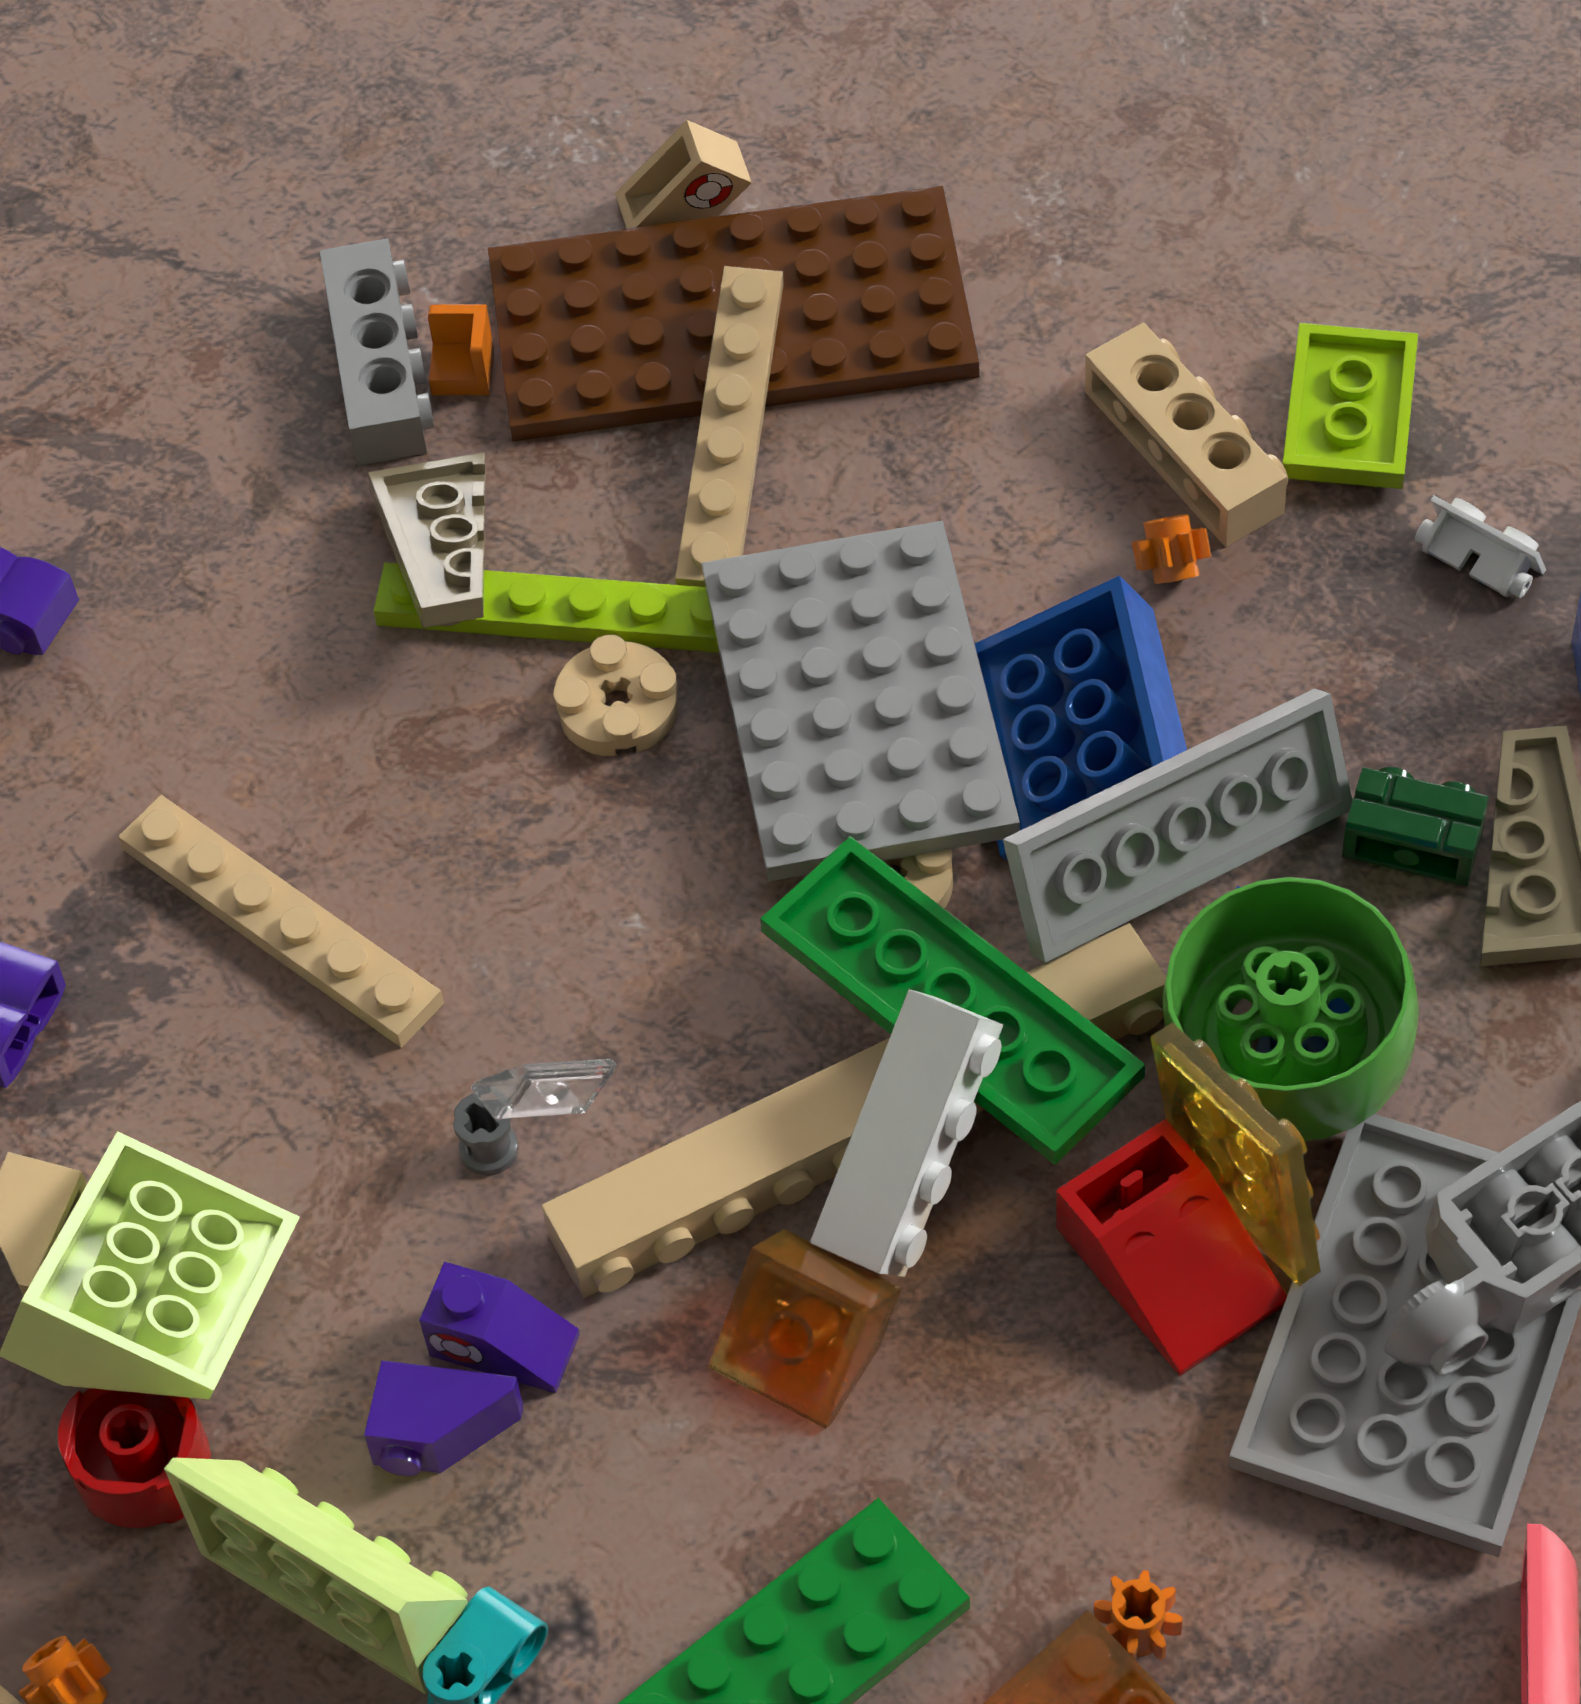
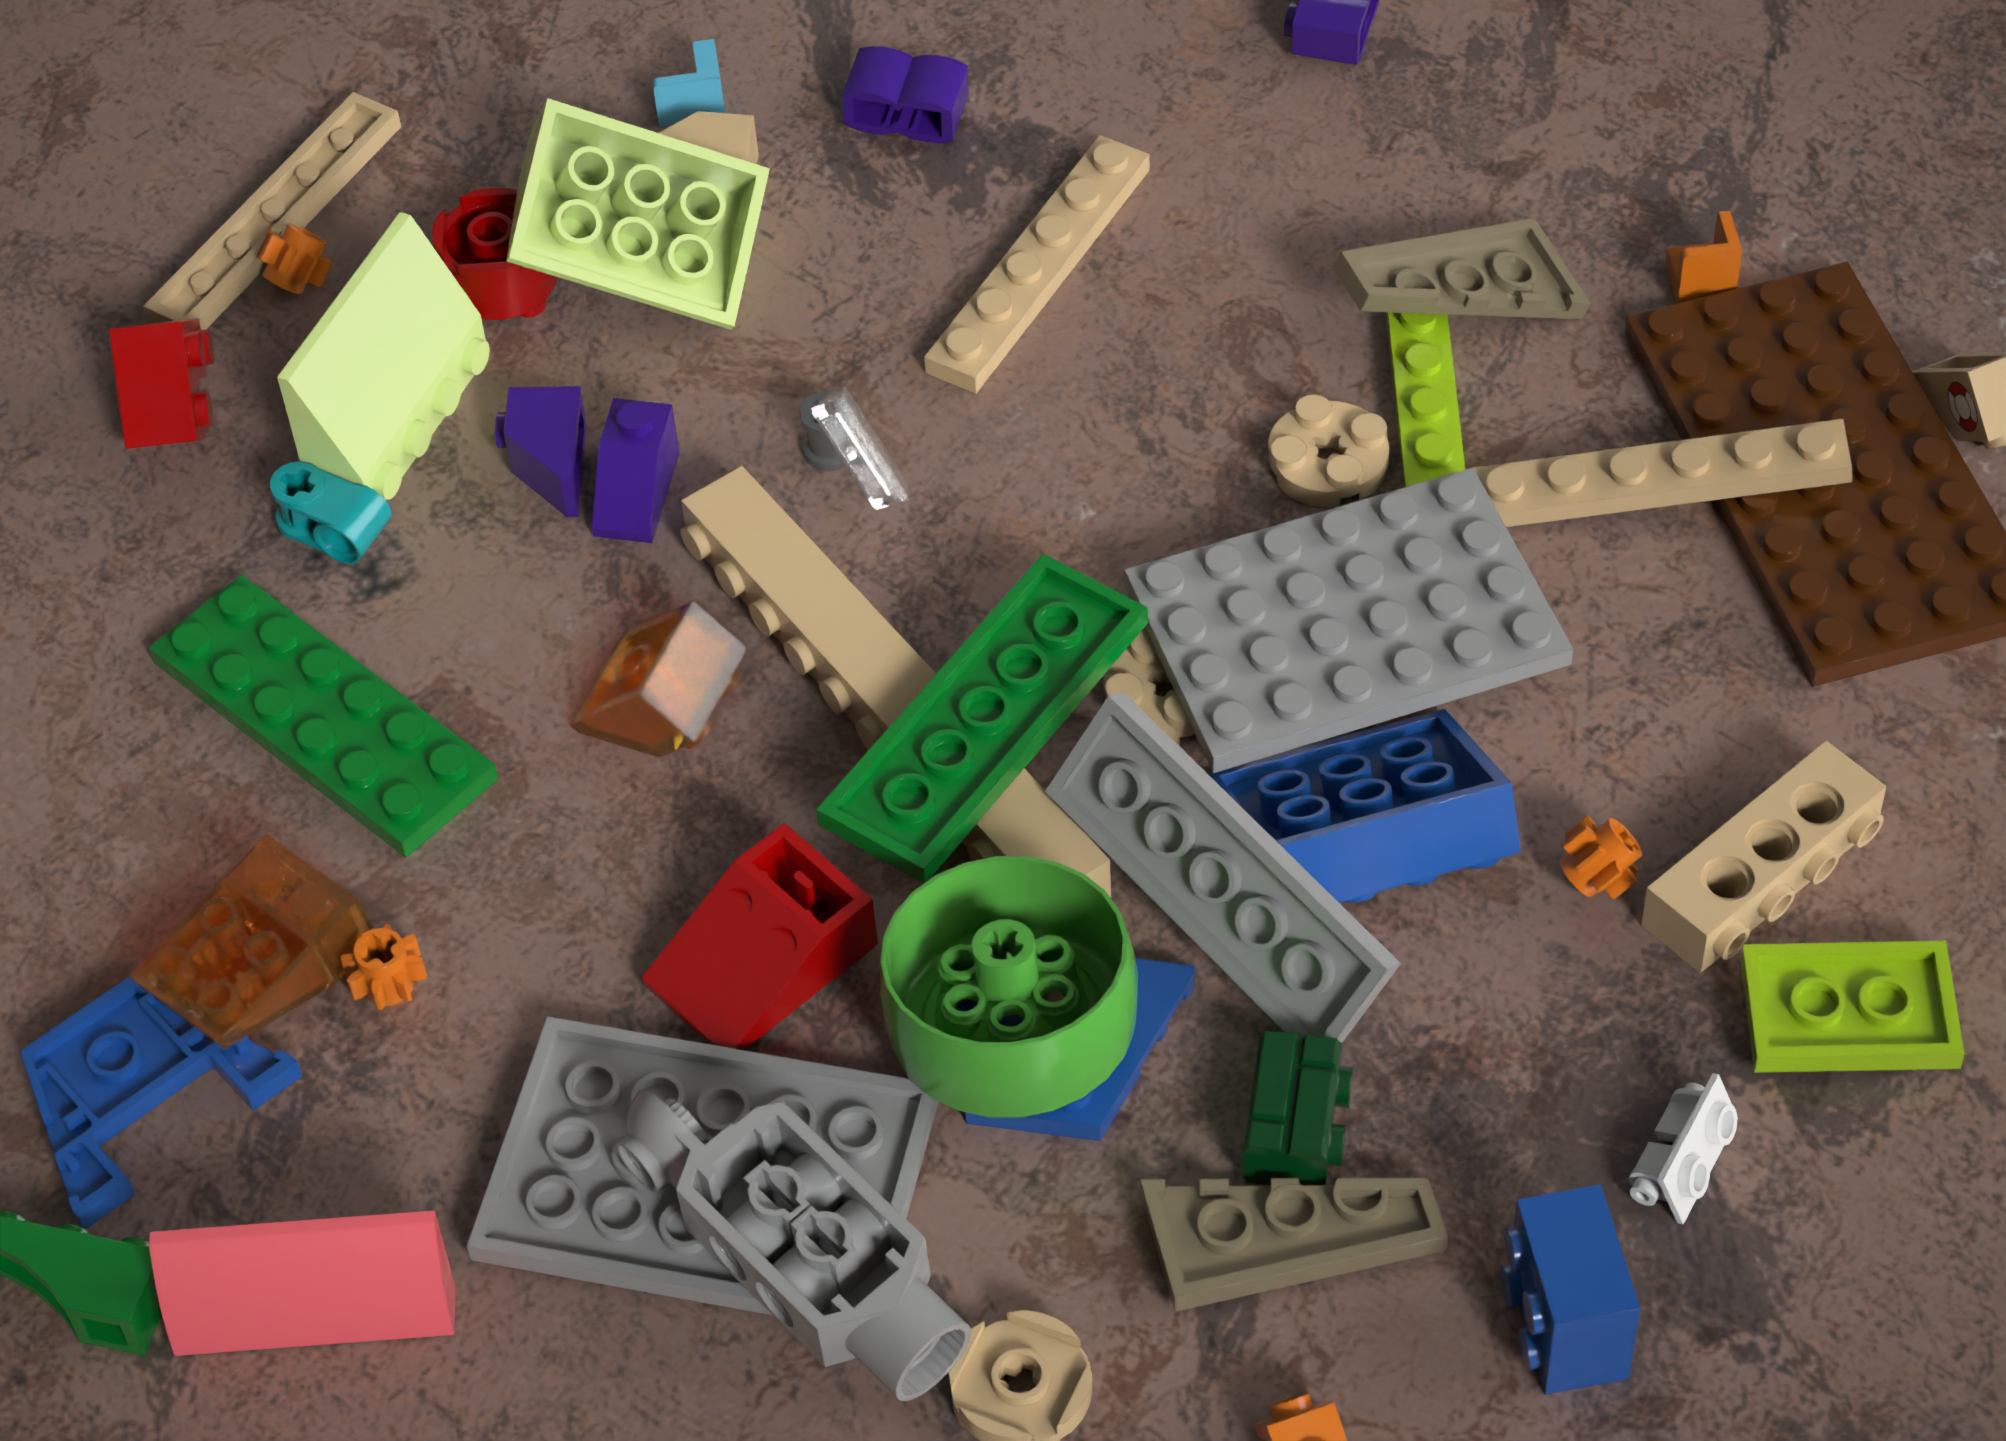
camera: 80 degrees right, 5 degrees down
(374, 353) = (1678, 197): light grey brick -> none
(908, 1134) = (830, 698): white brick -> none
(1244, 1148) = (817, 944): clear yellow plate -> none

